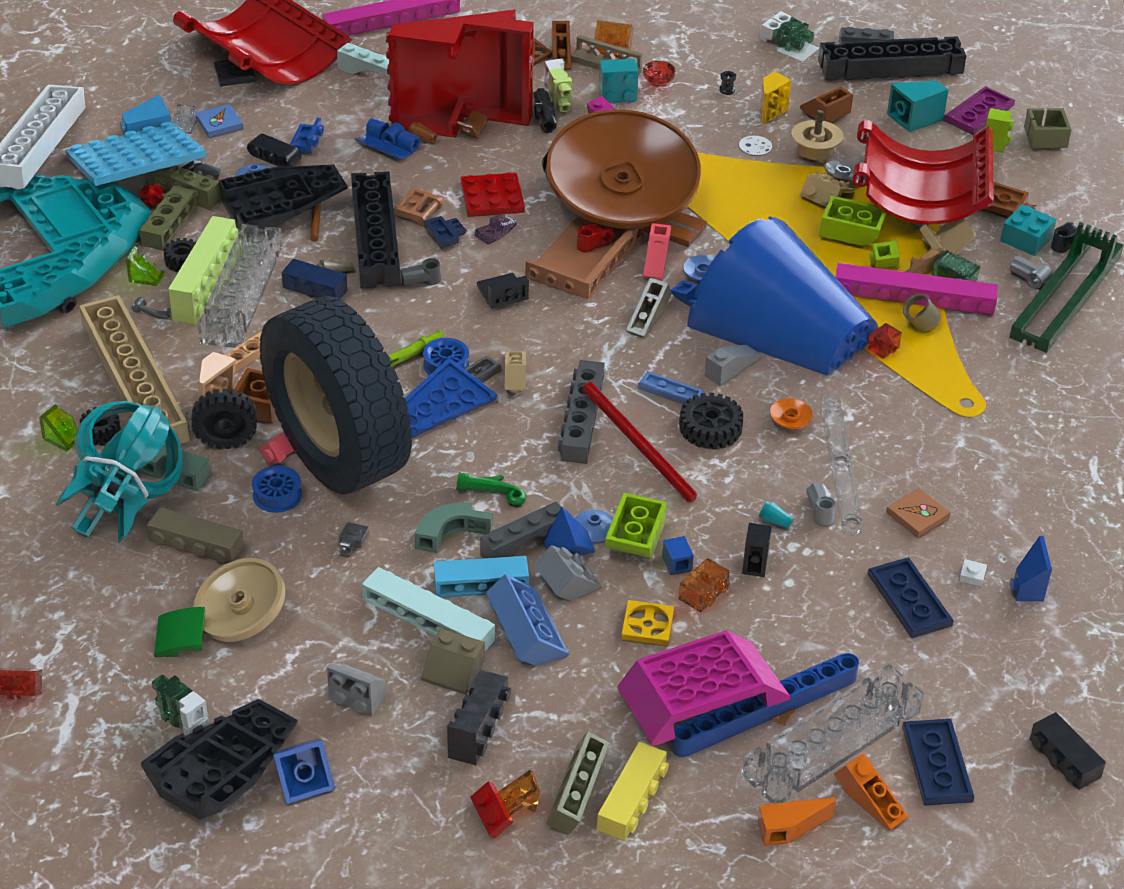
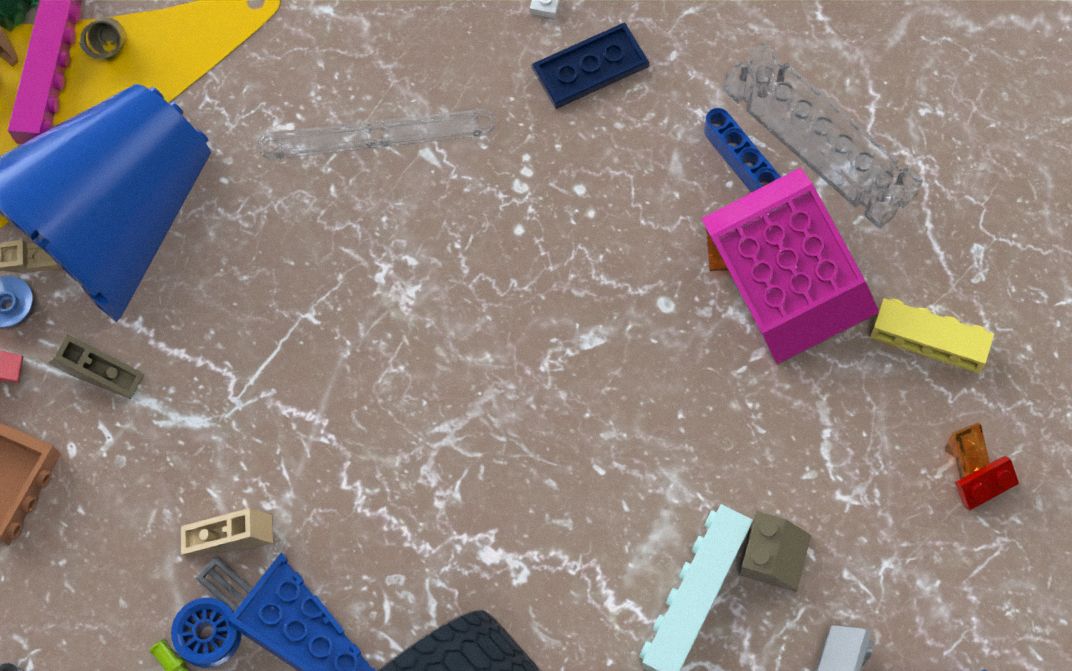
camera: 90 degrees left, 25 degrees up
(447, 520) = (544, 603): sand green arch -> none
(476, 575) = (627, 535): medium azure brick -> none
(477, 717) = (860, 510): black wedge -> none
(491, 484) = (453, 546): green plant -> none
(504, 289) = (48, 570): black bracket -> none
(510, 537) = (561, 497): dark grey arch -> none
(526, 621) = (697, 472): medium blue slope -> none
(567, 573) = (611, 431): light grey slope -> none
(569, 534) = (555, 434): blue slope -> none
(578, 783) = (940, 389): olive brick -> none
(582, 413) = (237, 426): dark grey brick -> none
(596, 523) = (516, 423): medium blue dish -> none
(637, 525) = (530, 353): lime brick -> none
(640, 442) = (368, 362): red axle -> none
(649, 609) = (671, 316): yellow piece -> none
(668, 388) = (251, 333): medium blue tile -> none
(677, 555) = (562, 307): blue brick -> none
(685, 292) = (57, 318): blue slope -> none
(704, 585) = (614, 286): clear orange brick -> none
(711, 420) = (319, 298): black wheel -> none
(728, 362) = (199, 260): light grey slope -> none
(756, 549) = (554, 214): black brick -> none
(775, 515) = (478, 204): teal cone -> none
(789, 820) = (942, 179): orange slope -> none
(791, 413) = (294, 177): orange dish -> none
(822, 504) = (453, 152): light grey piece -> none
(870, 792) = (885, 102): orange slope -> none
(884, 340) = (155, 76): clear red brick -> none
(918, 512) = (454, 54): nougat tile -> none
(937, 762) = (826, 42): dark blue tile -> none

